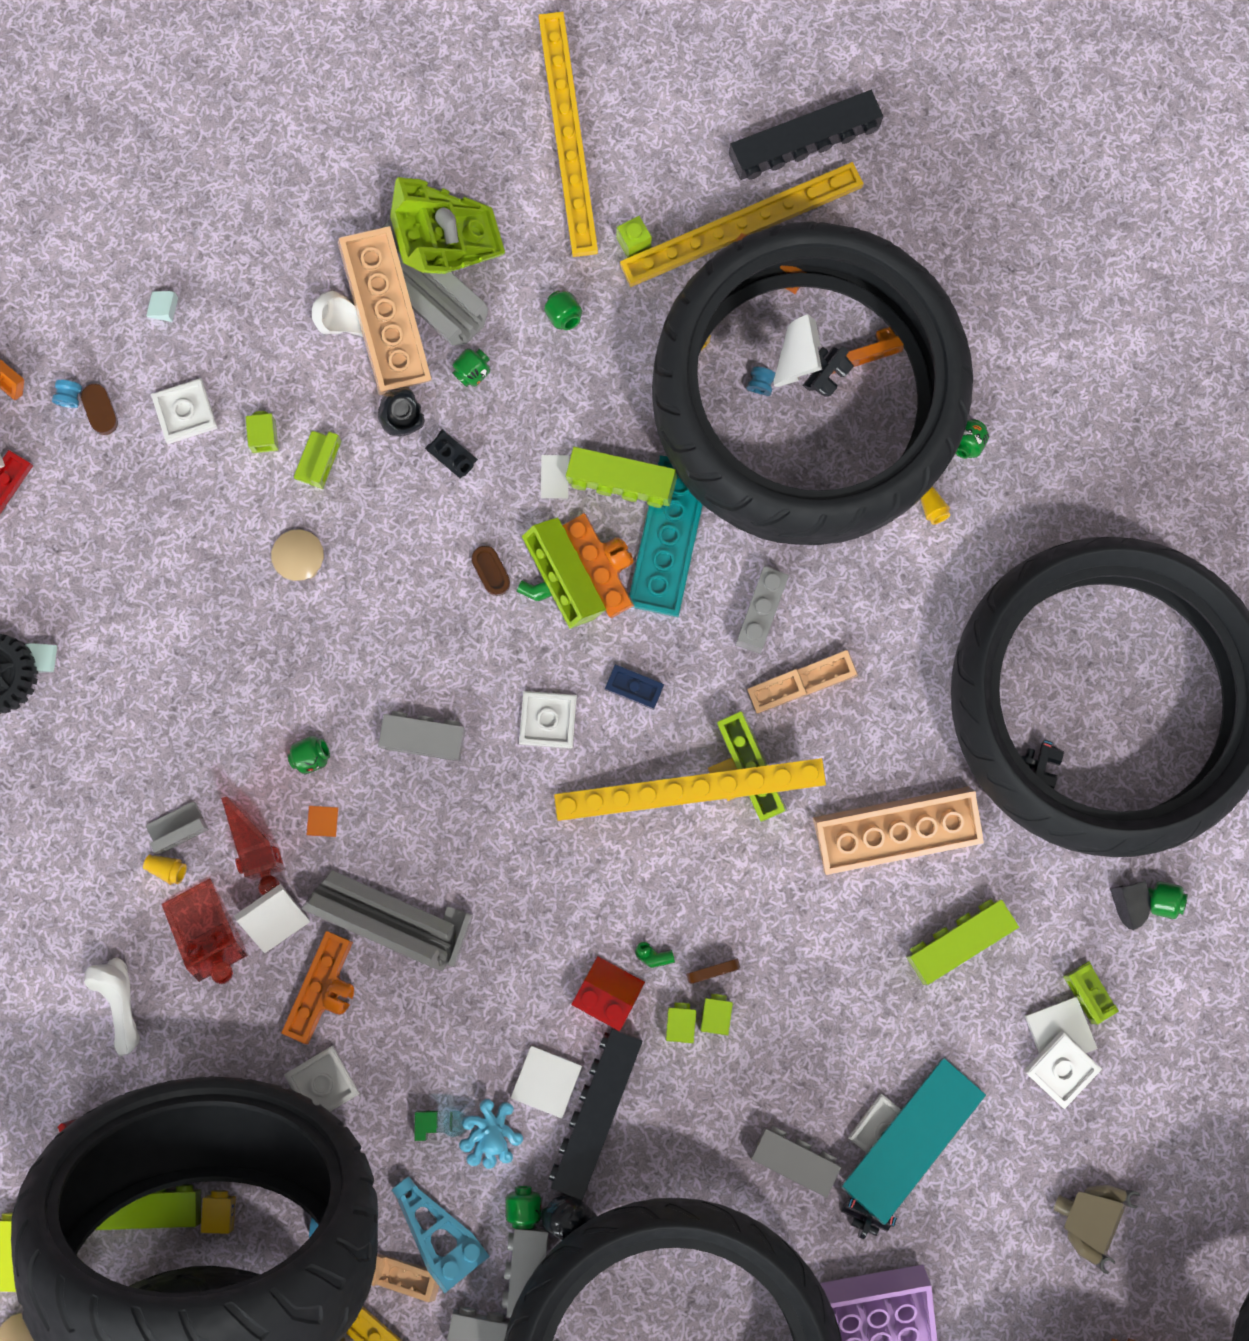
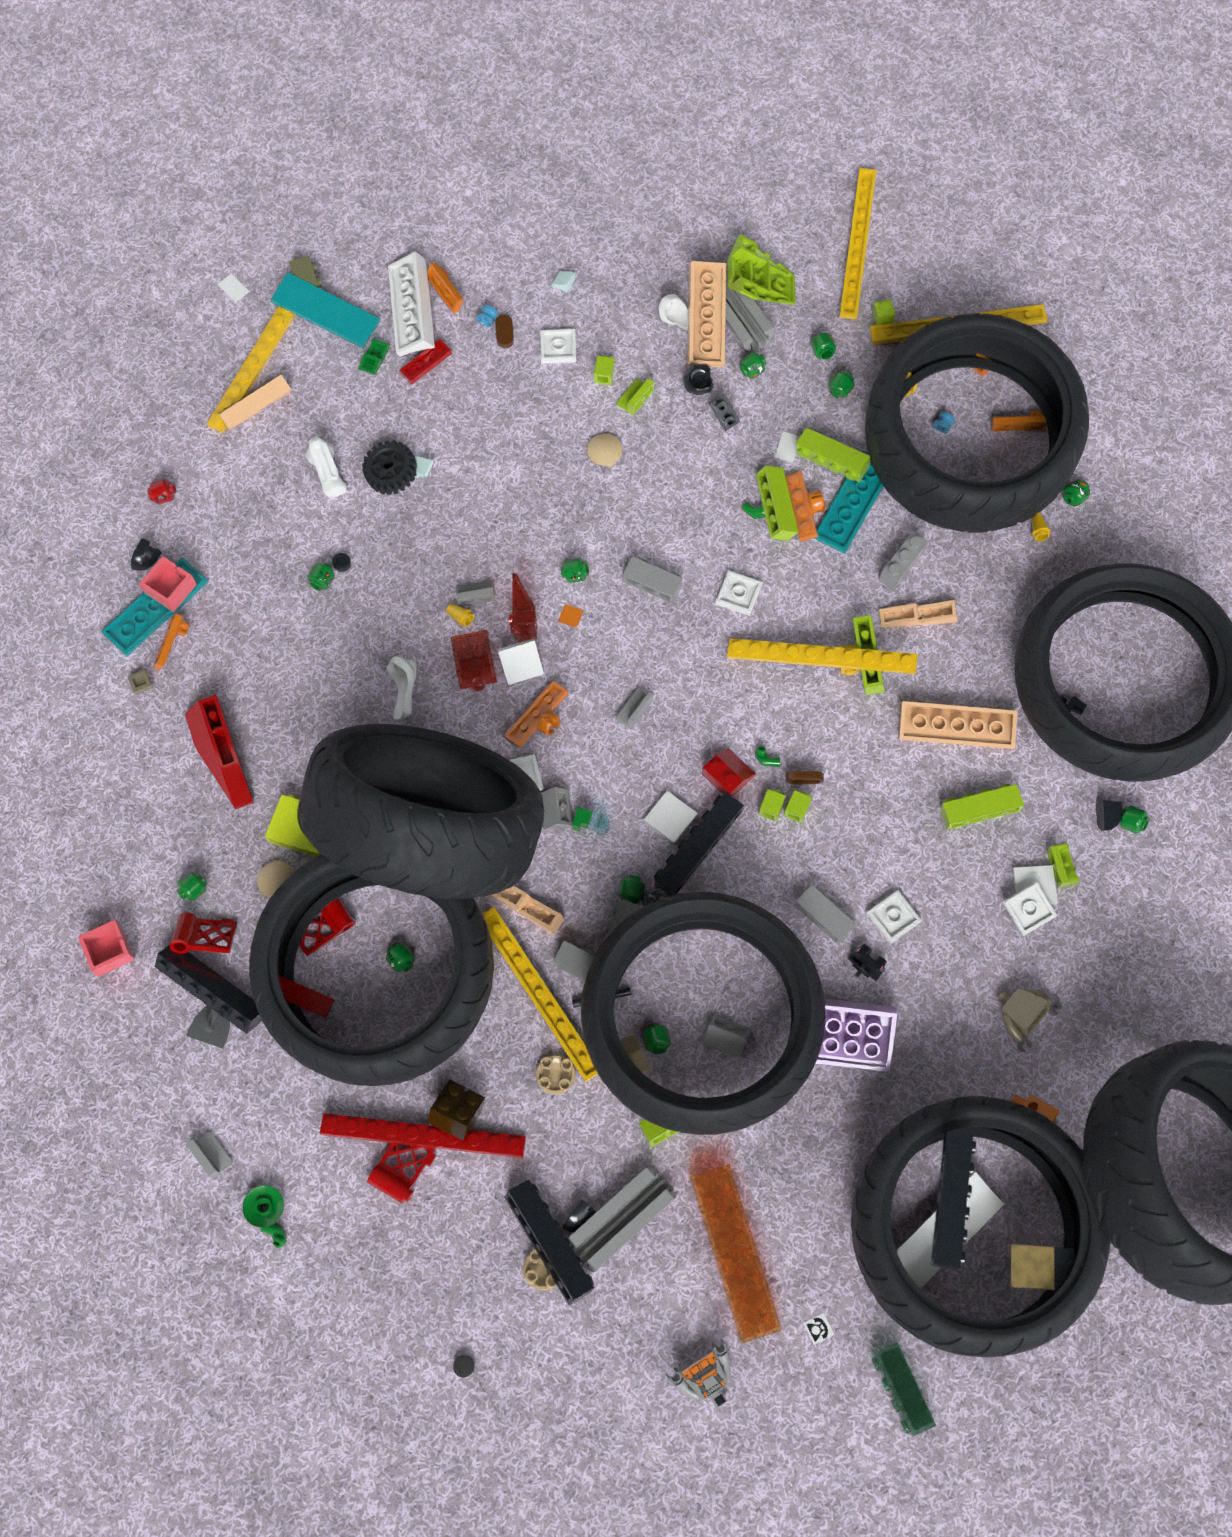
camera: 25 degrees right, 10 degrees down
(383, 920) = (592, 682): light grey piece -> none
(385, 1118) = (556, 808): none -> light grey panel
(447, 221) = (763, 270): light grey arm -> none
(461, 1260) = (573, 912): medium azure plate -> none
(489, 1135) = (623, 838): medium azure animal -> none
(490, 570) = (728, 492): reddish brown tile -> none
(604, 363) = (841, 384): none -> green head
(634, 687) = (803, 587): dark blue plate -> none
(799, 351) = (973, 387): white slope -> none
(806, 135) = (1016, 281): black brick -> none
(830, 361) = (996, 401): black hips -> none
(913, 1141) = (911, 923): teal tile -> none

